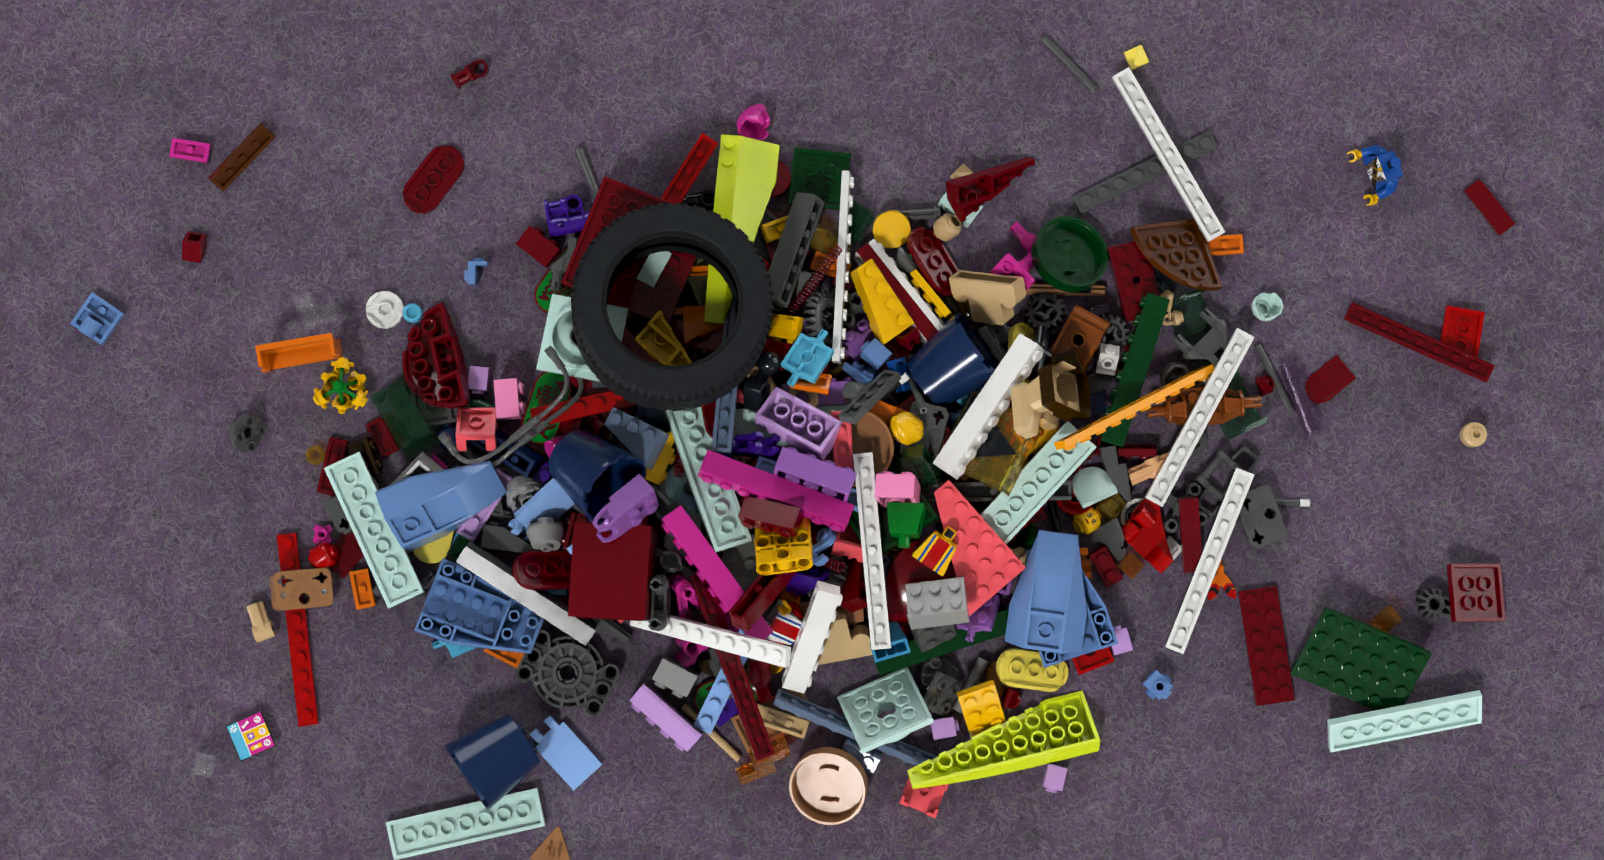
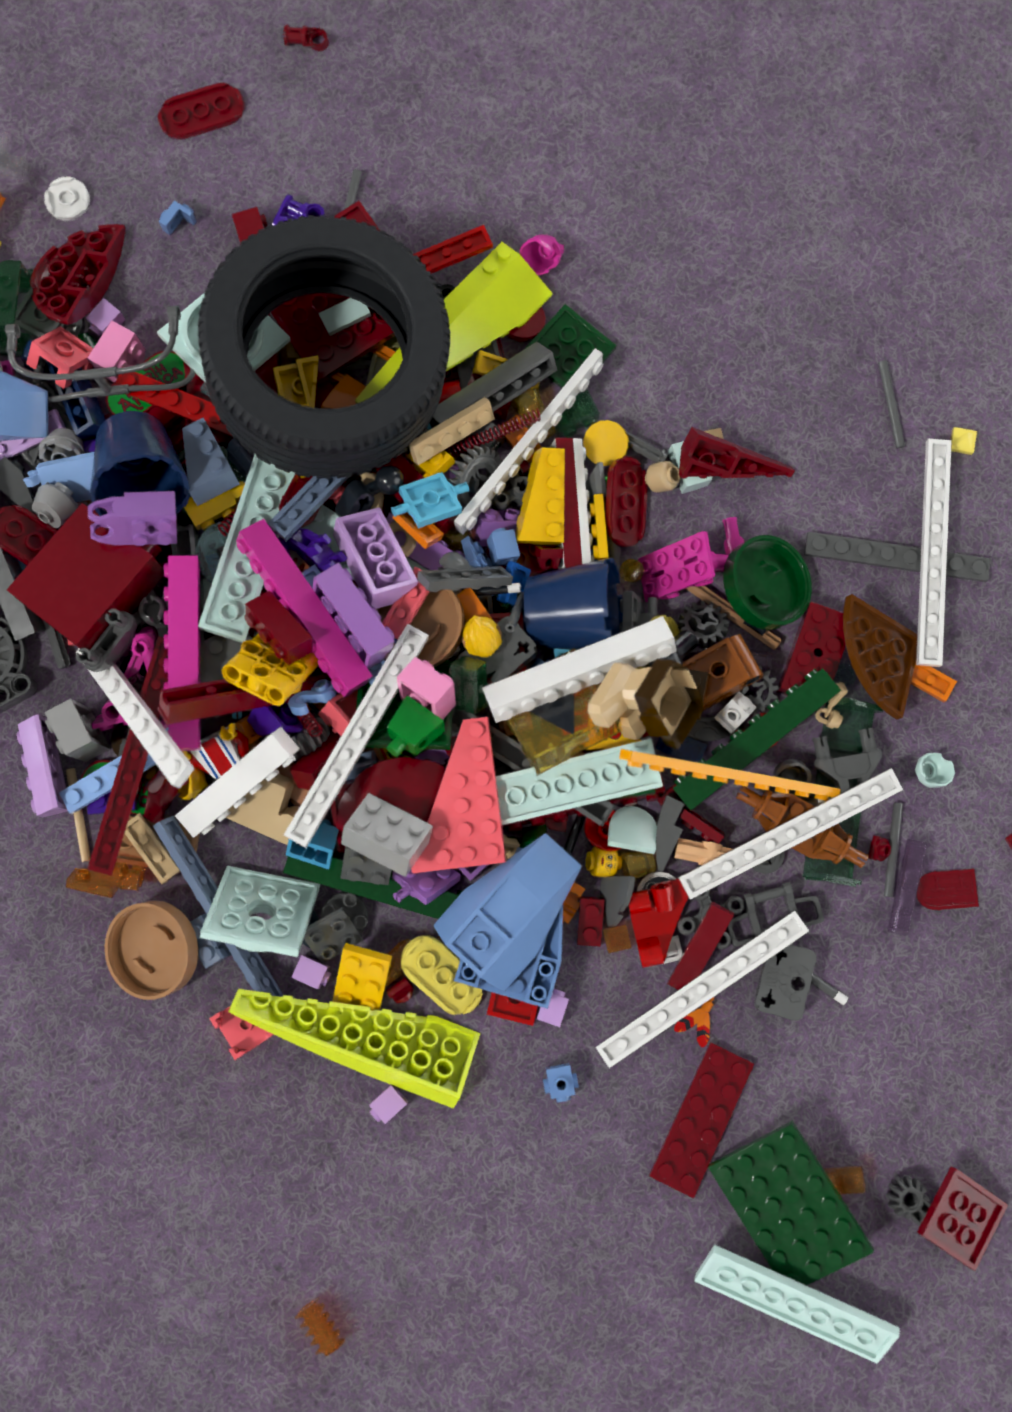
camera: 30 degrees right, 5 degrees down
(412, 313) = (90, 218): medium azure tile -> none
(787, 299) = (451, 431): none -> tan plate
(937, 550) = (425, 781): torso -> none
(973, 679) = (380, 941): light grey pin -> none
(989, 295) = (657, 565): tan brick -> none

